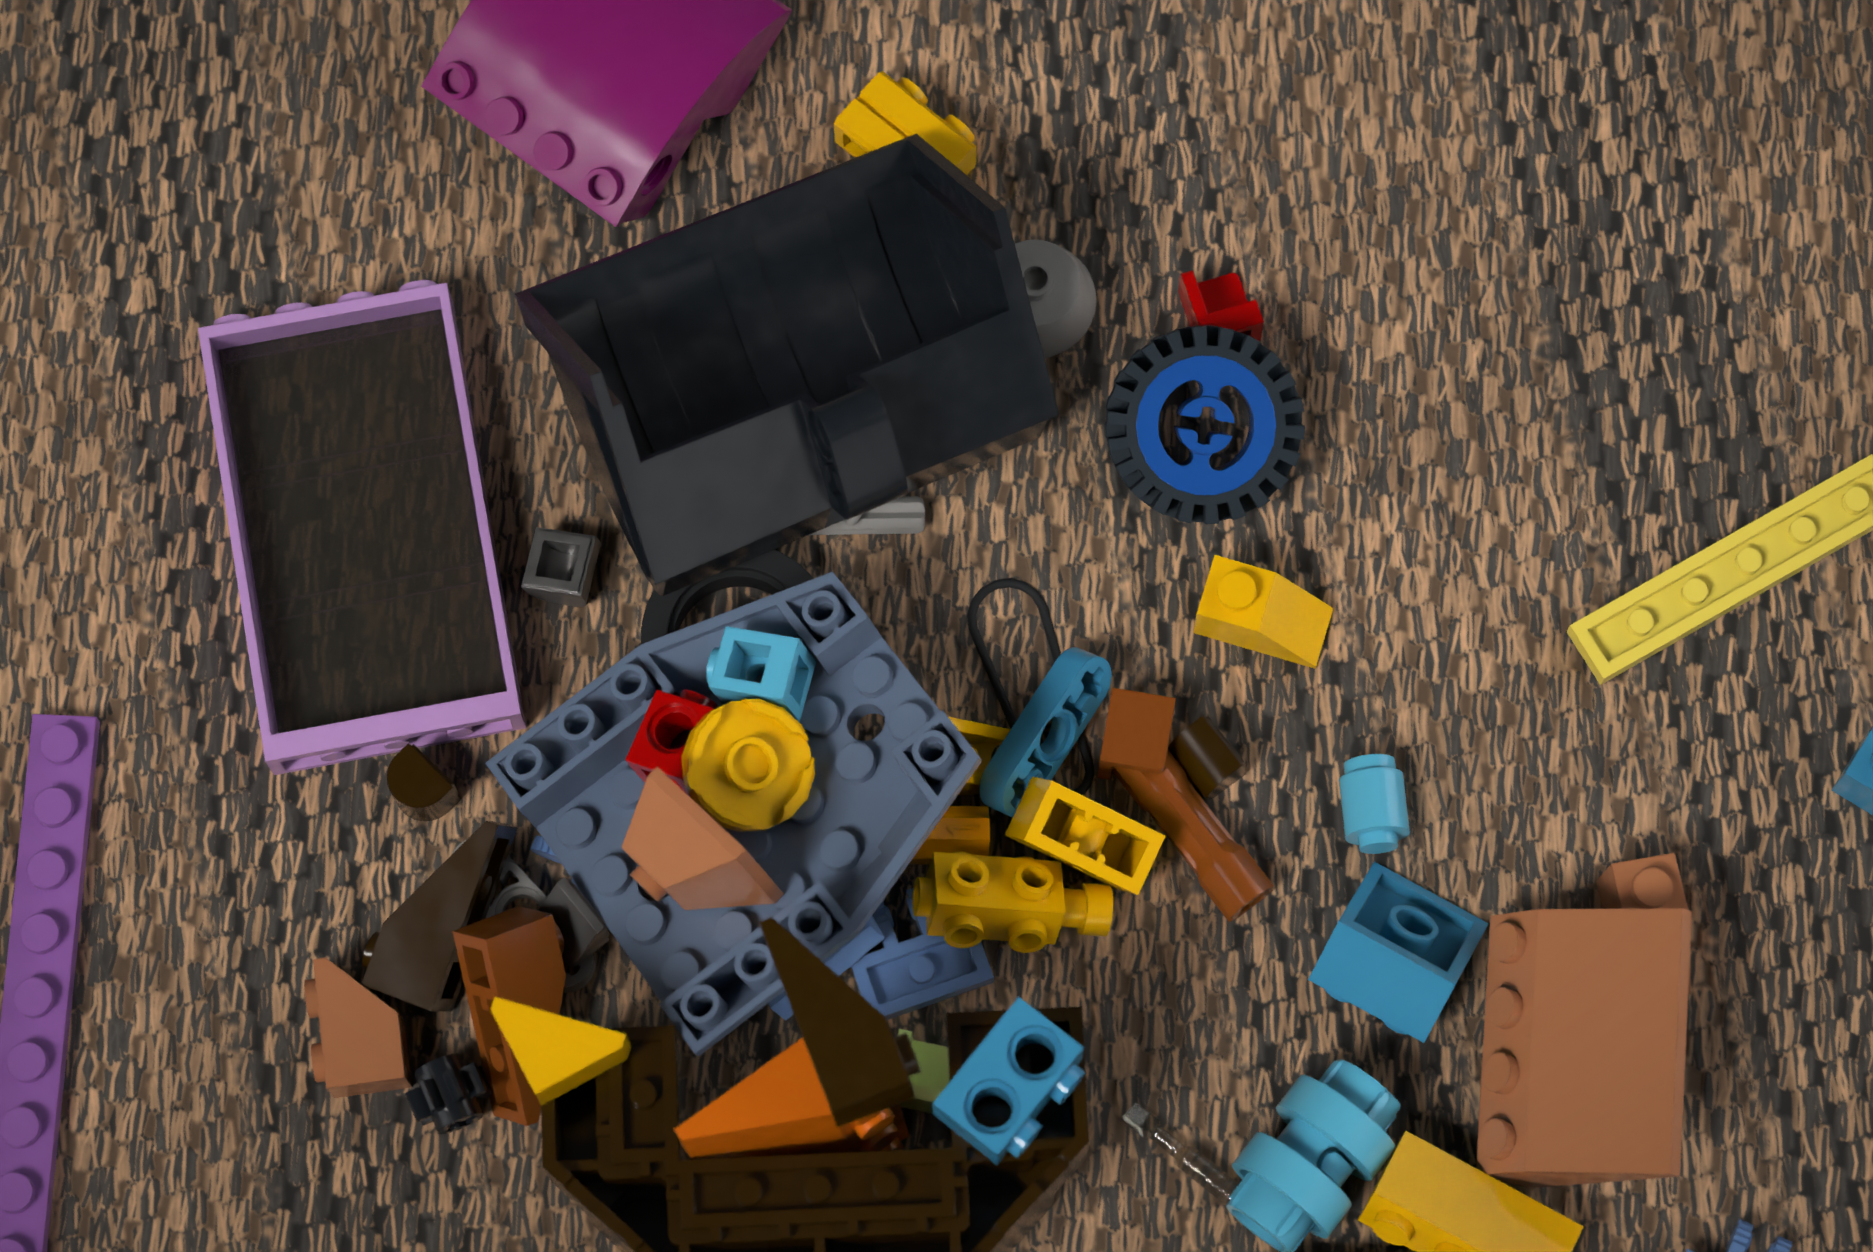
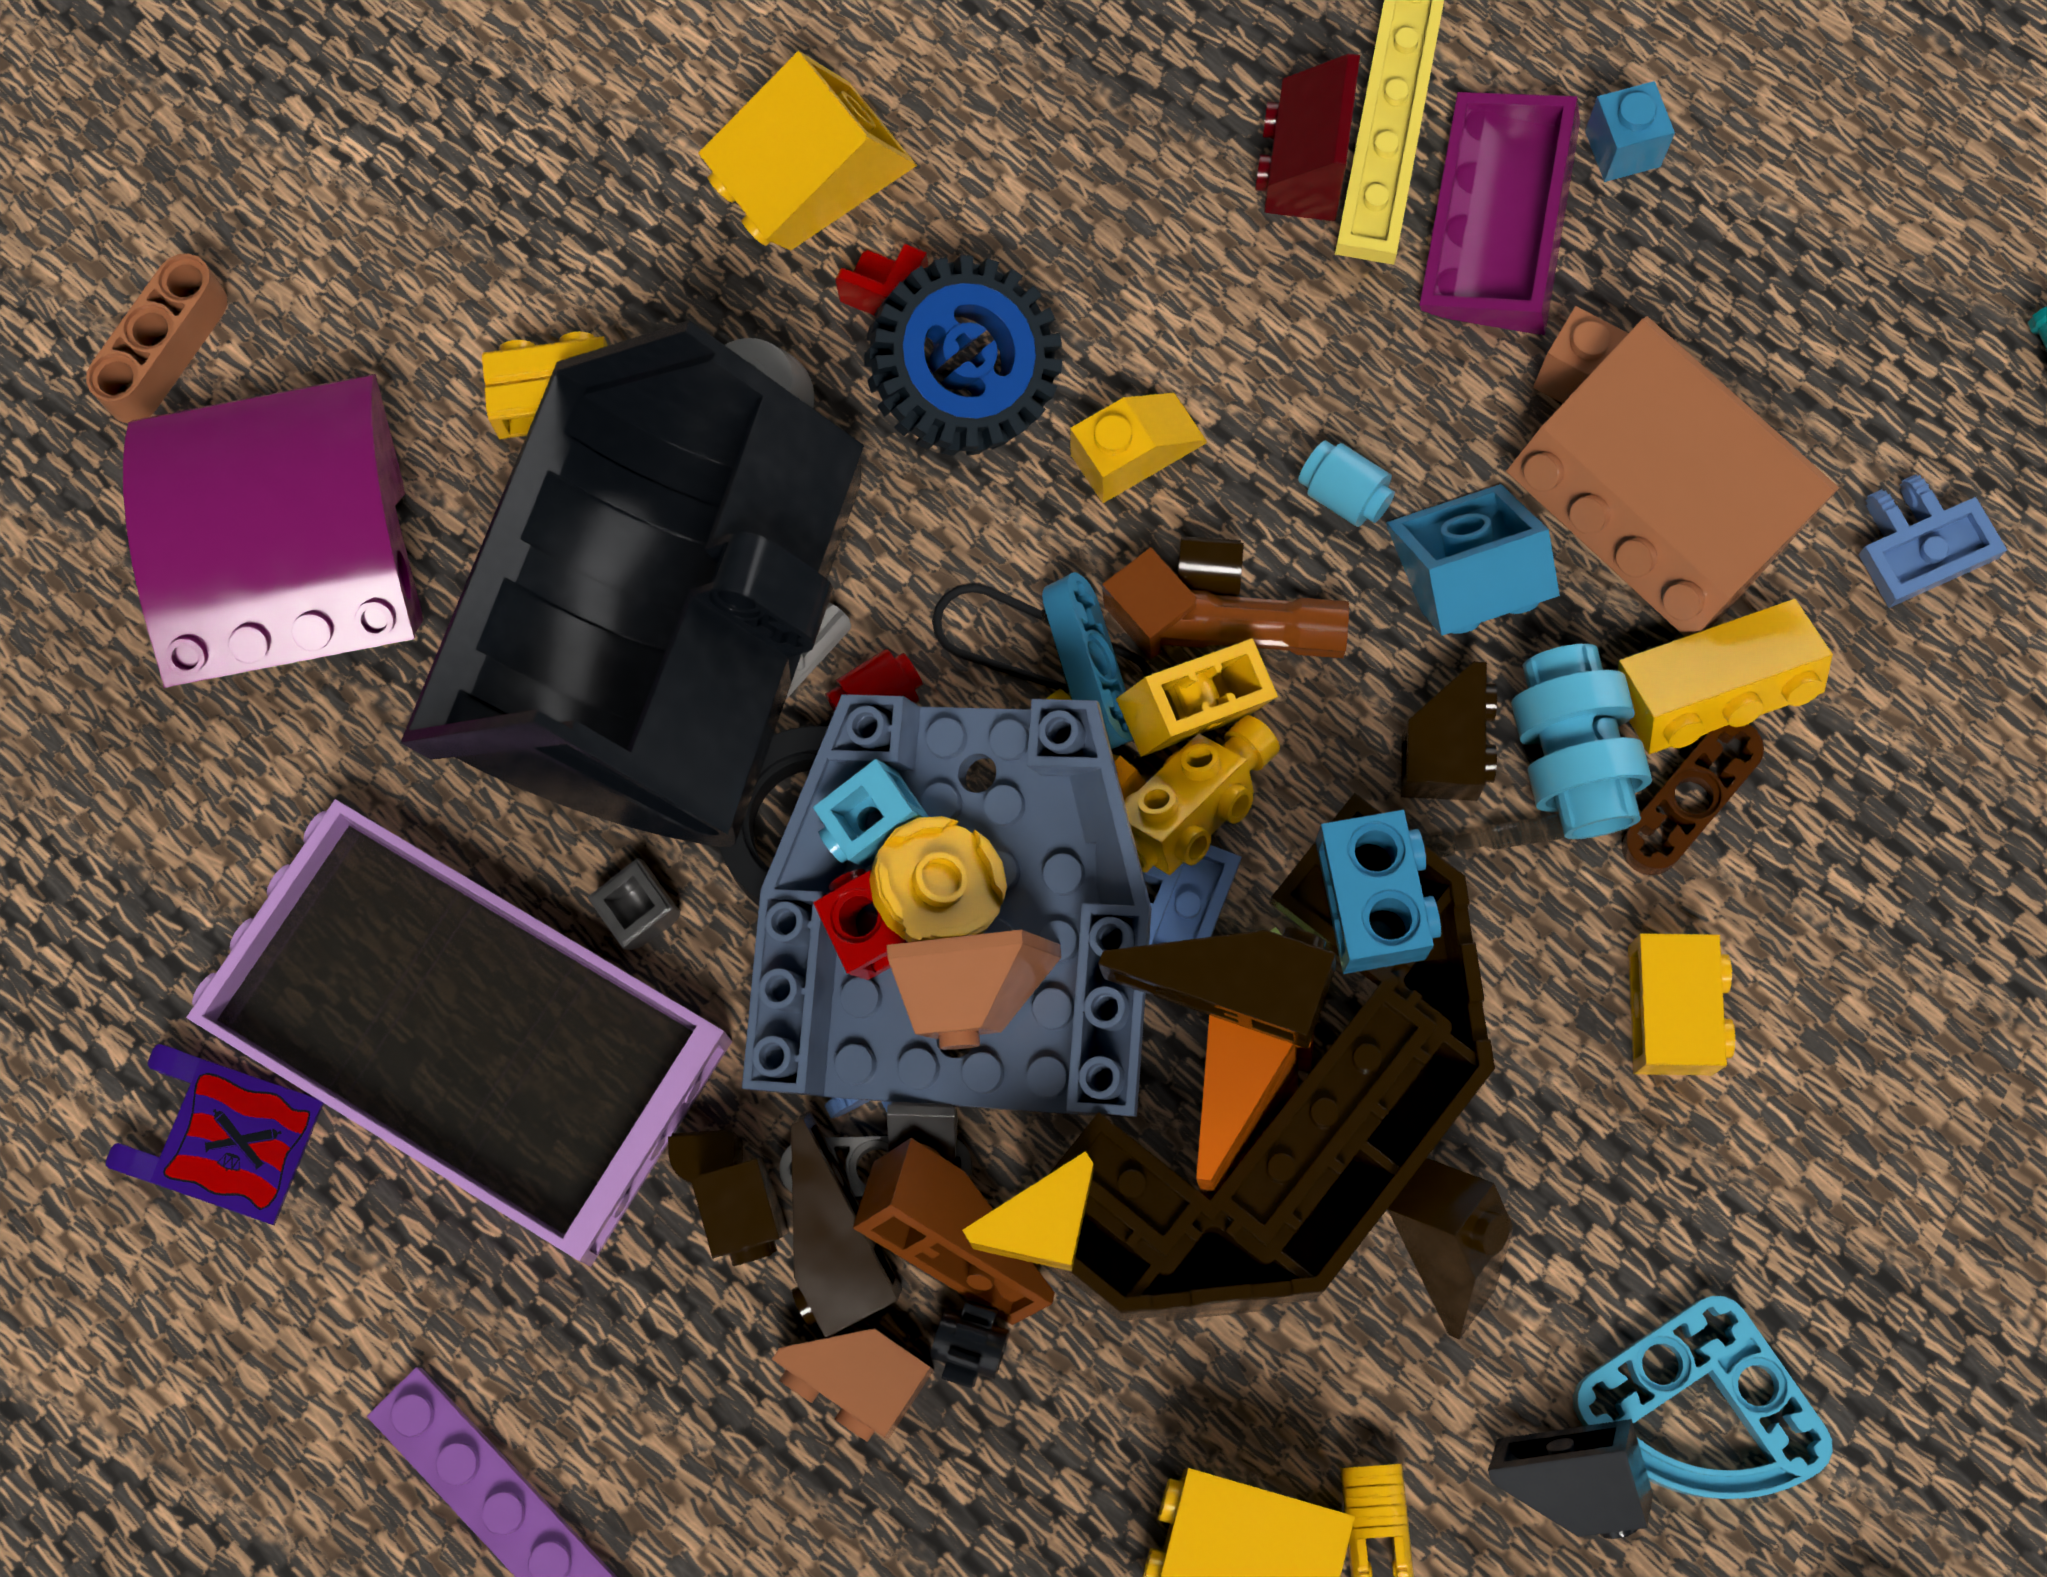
camera: 45 degrees left, 0 degrees up
(144, 439) = (231, 1139): none -> flag
(396, 842) = (740, 1211): none -> dark brown slope
(886, 593) = (878, 676): none -> red brick
(1228, 1053) = (1446, 741): none -> dark brown slope
(1267, 158) = (802, 154): none -> yellow slope
(1635, 531) = (1309, 140): none -> dark red slope
(1725, 730) = (1501, 210): none -> magenta slope

